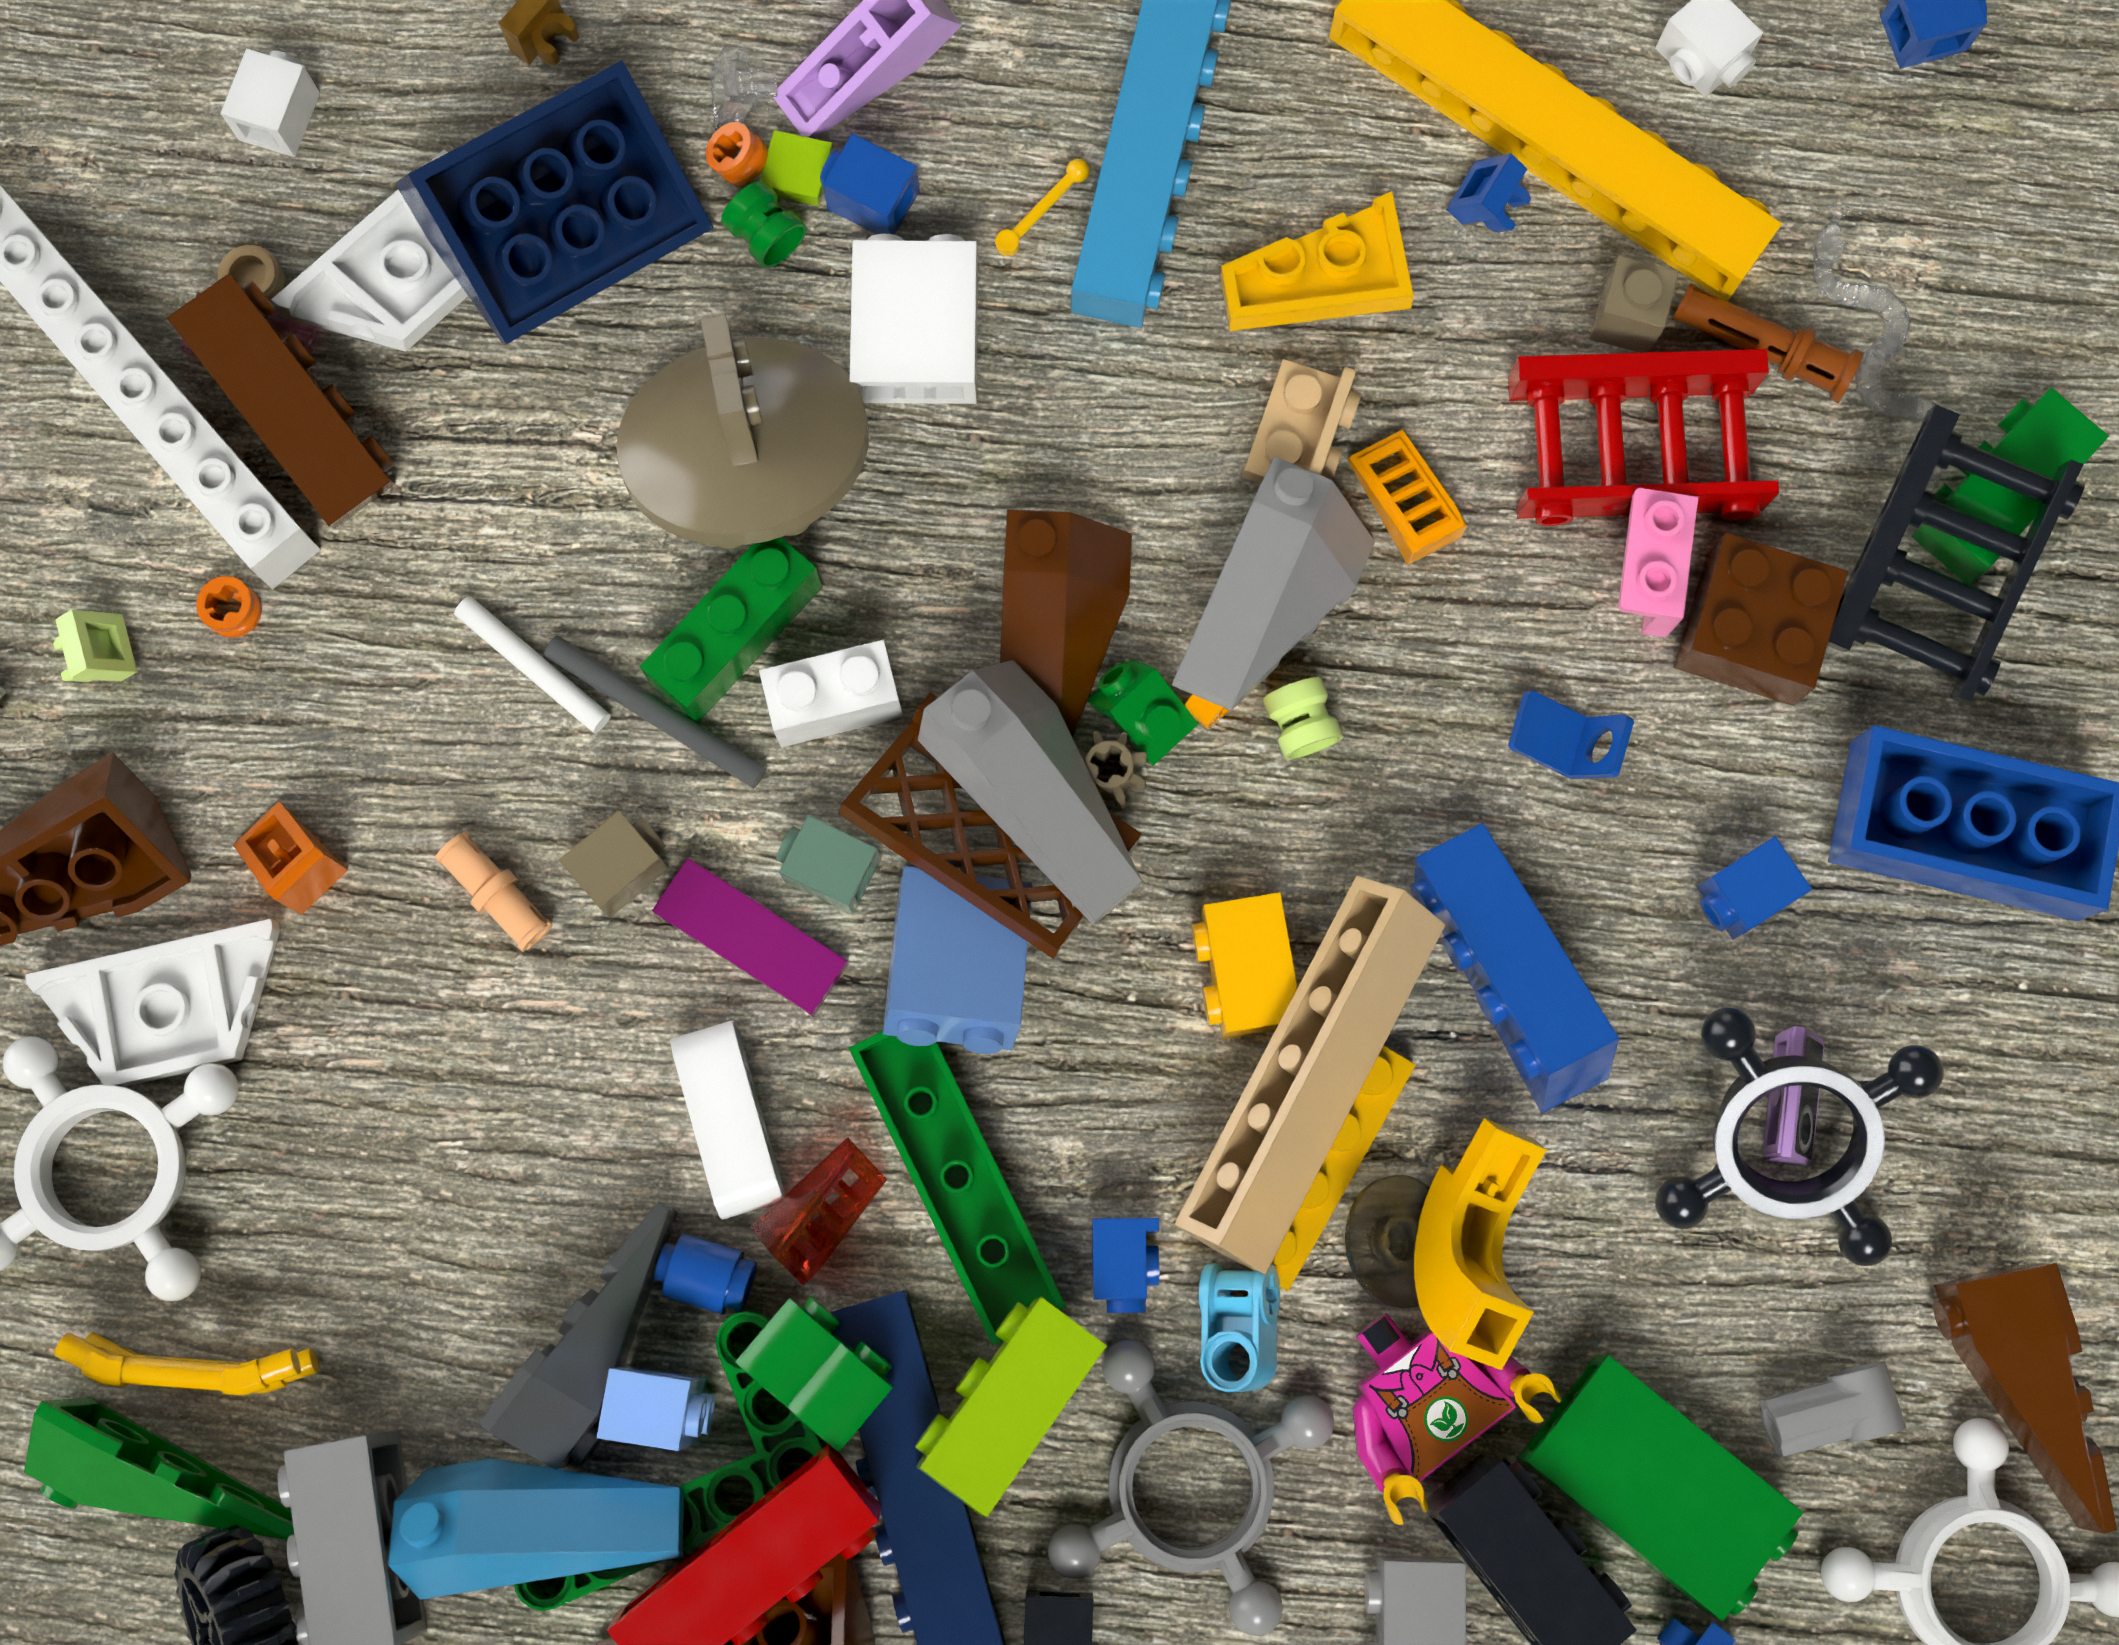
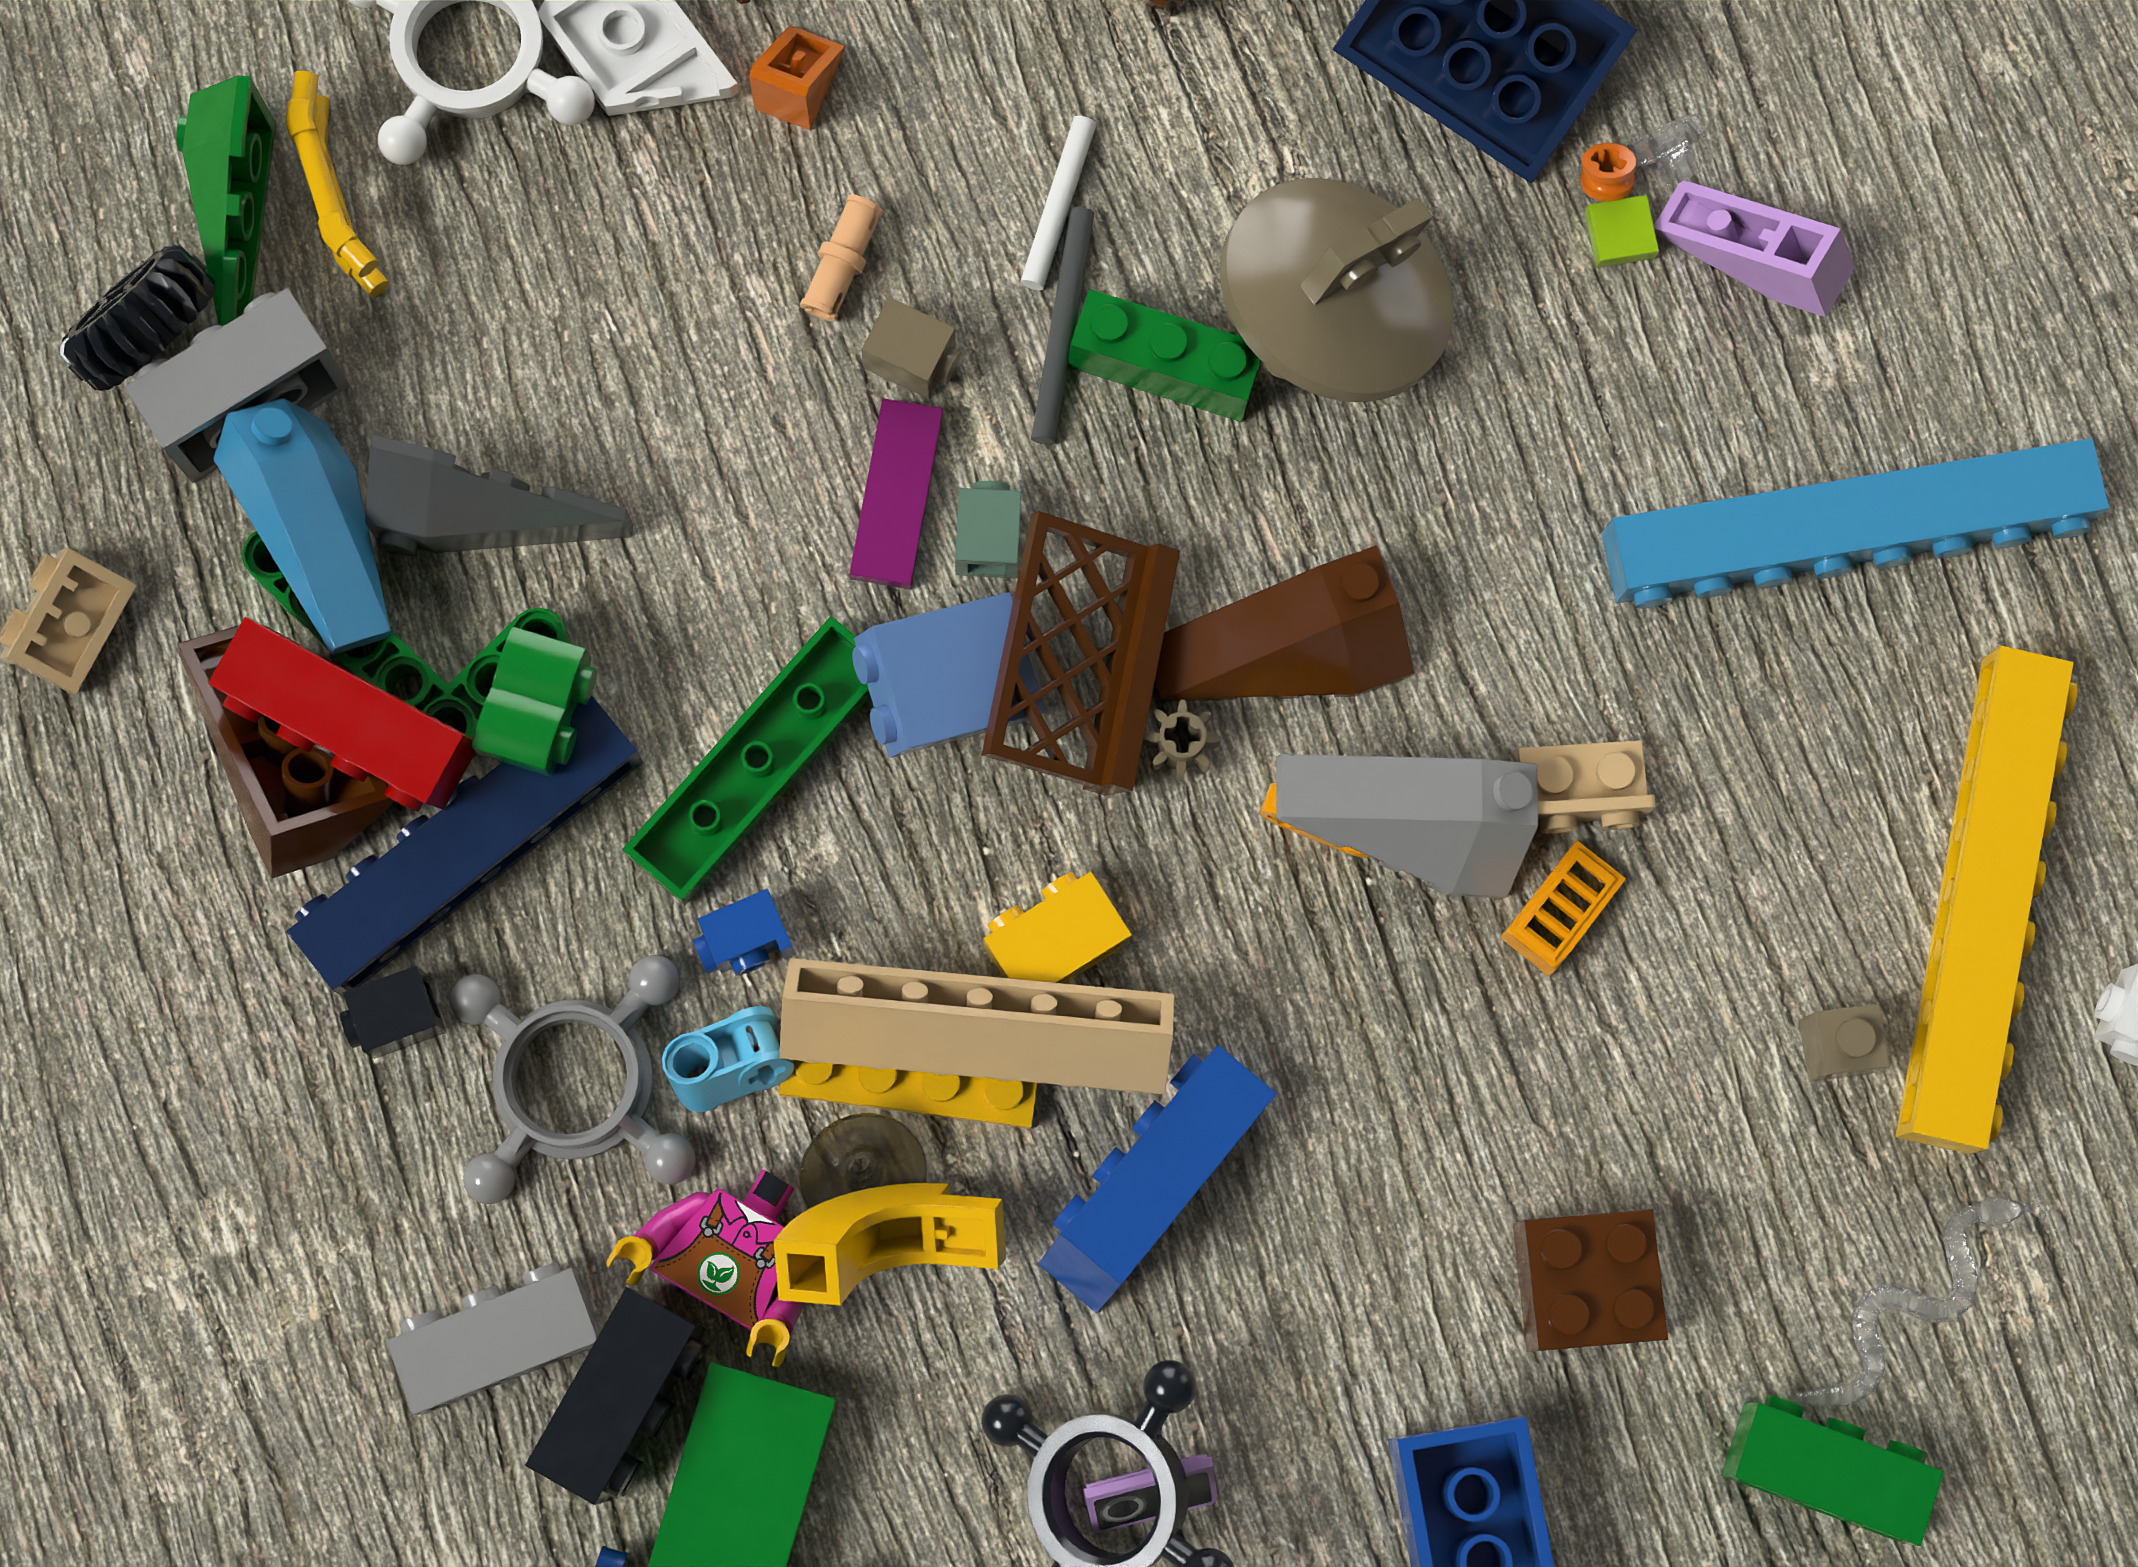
camera: 60 degrees right, 0 degrees up
(655, 1408) = (450, 582): light blue brick -> none
(705, 1274) = (584, 580): blue brick -> none
(727, 1119) = (726, 541): white beam -> none
(761, 221) = (1551, 224): green wheel -> none
(786, 1226) = (654, 665): clear red slope -> none
(830, 693) = (1142, 467): white brick -> none
(869, 185) = (1631, 301): blue brick -> none
(914, 320) = (1523, 394): white brick -> none
(1007, 240) = (1642, 448): yellow hinge -> none
(1008, 1404) = (572, 877): lime brick -> none
(1025, 771) = (1141, 663): light grey wedge -> none
(1144, 708) = (1249, 748): green bracket -> none
(1302, 718) = (1307, 895): yellowish green wheel -> none
(1332, 273) = (1742, 747): yellow wing -> none
(1487, 191) = (1895, 862): blue tile -> none
(1566, 738) = (1395, 1142): blue bracket -> none
(1658, 559) = (1602, 1156): bright pink bracket -> none
(1667, 381) = (1783, 1106): red fence -> none
(1752, 889) = (1327, 1372): blue brick -> none
(1795, 353) = (1870, 1216): dark orange pin -> none
(1913, 505) = (1760, 1378): black fence -> none

